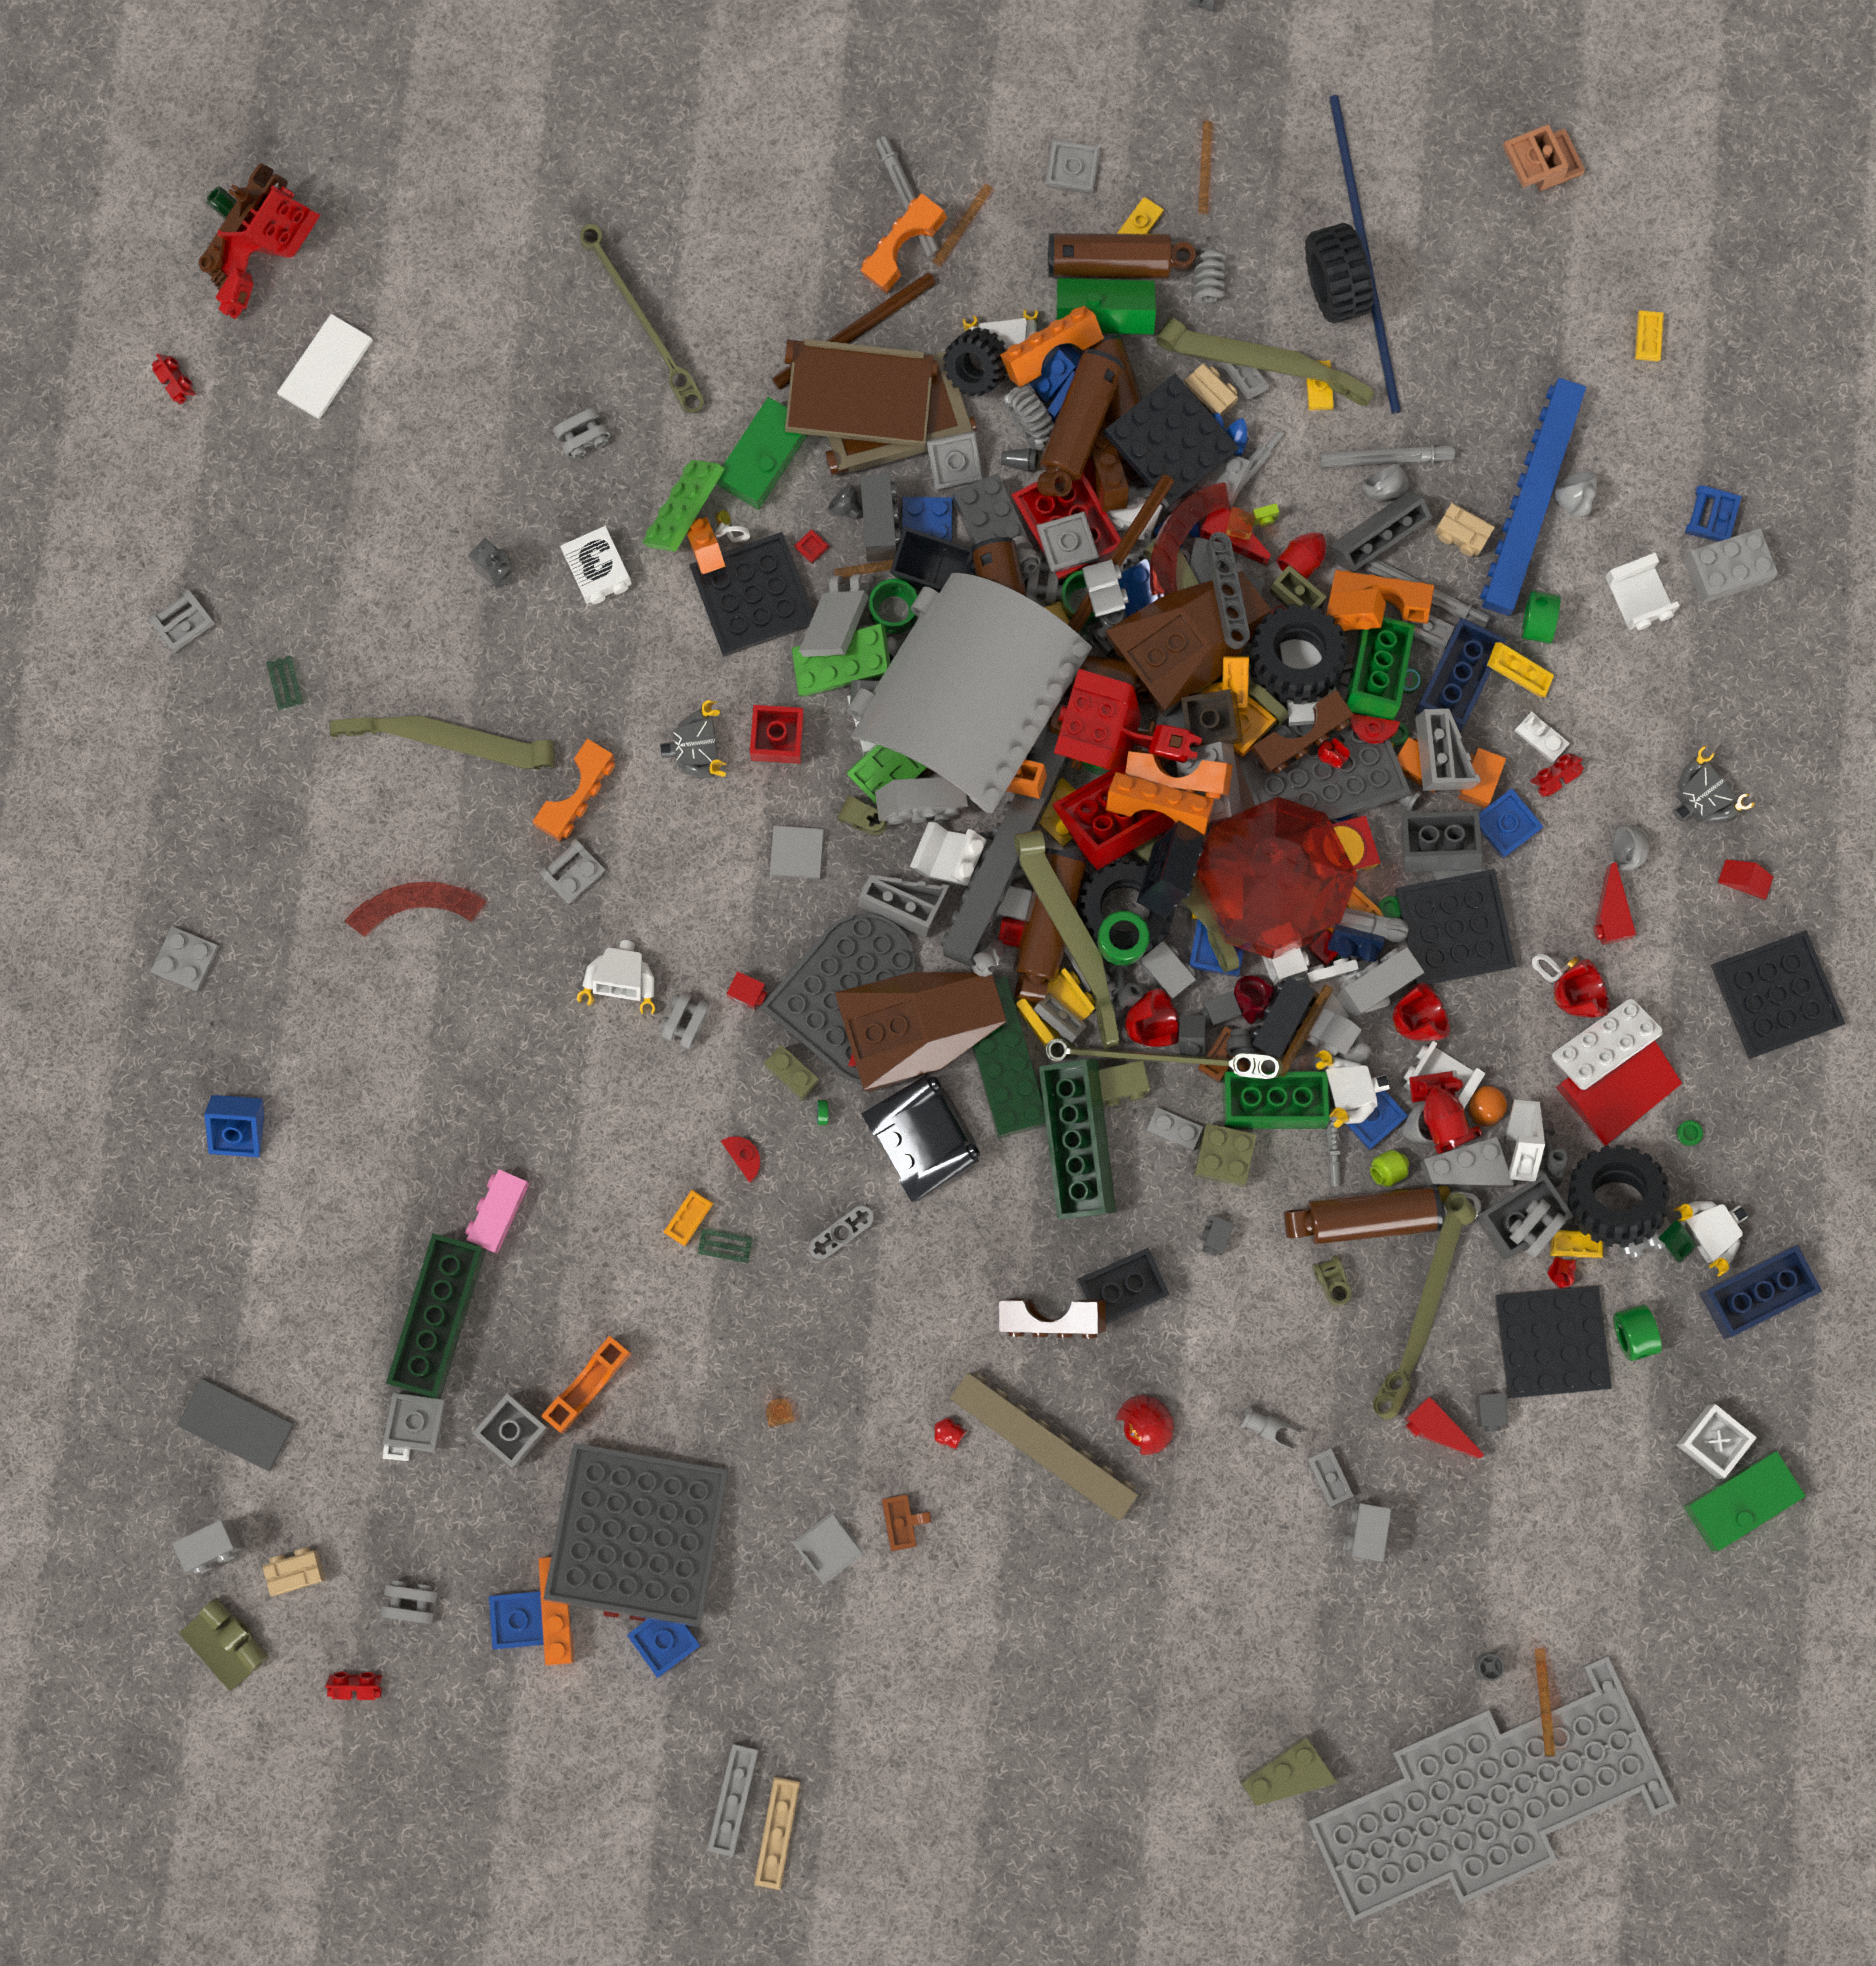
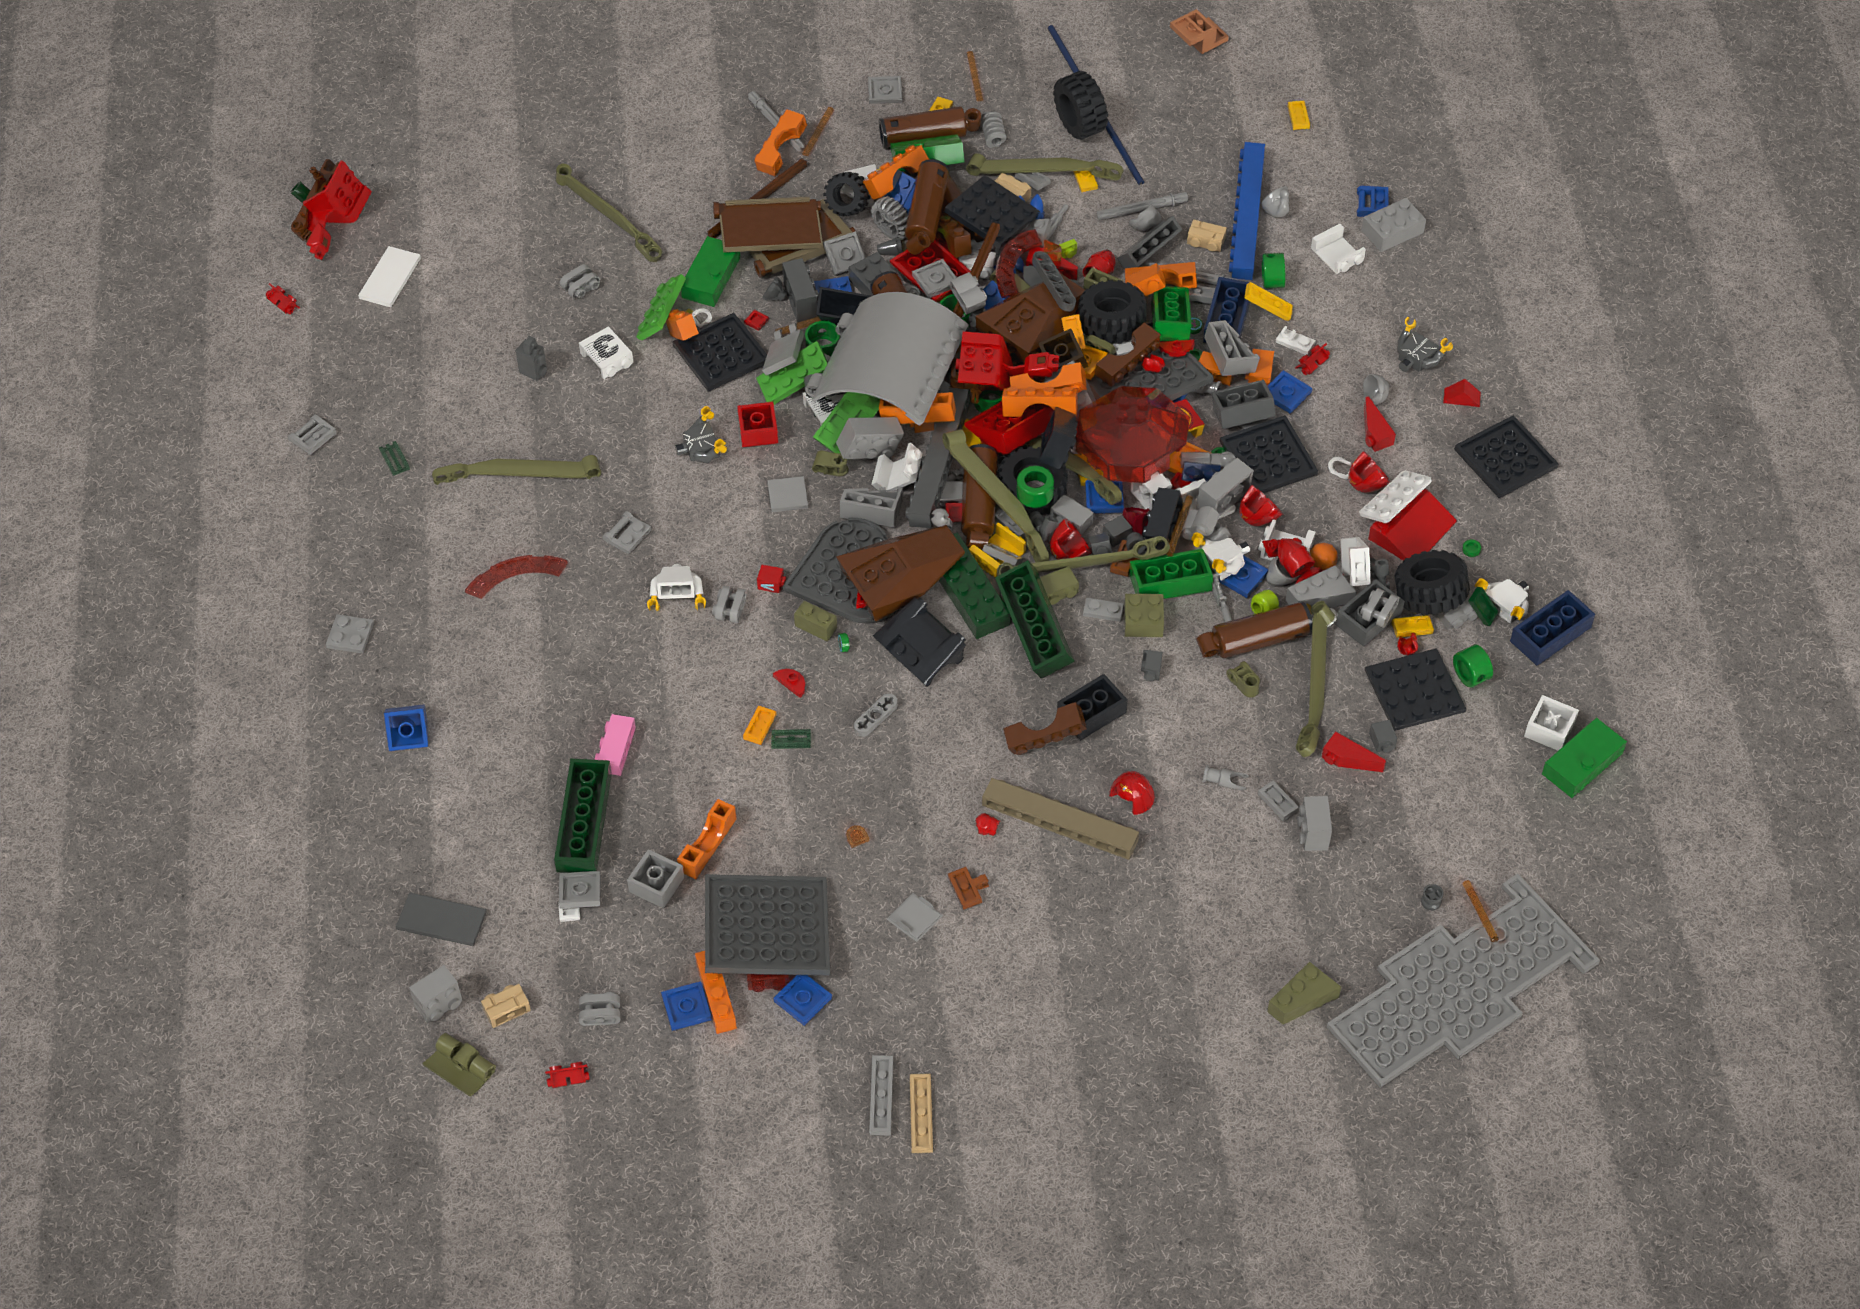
camera: 10 degrees left, 25 degrees down
(558, 817) = (610, 500): orange arch -> none

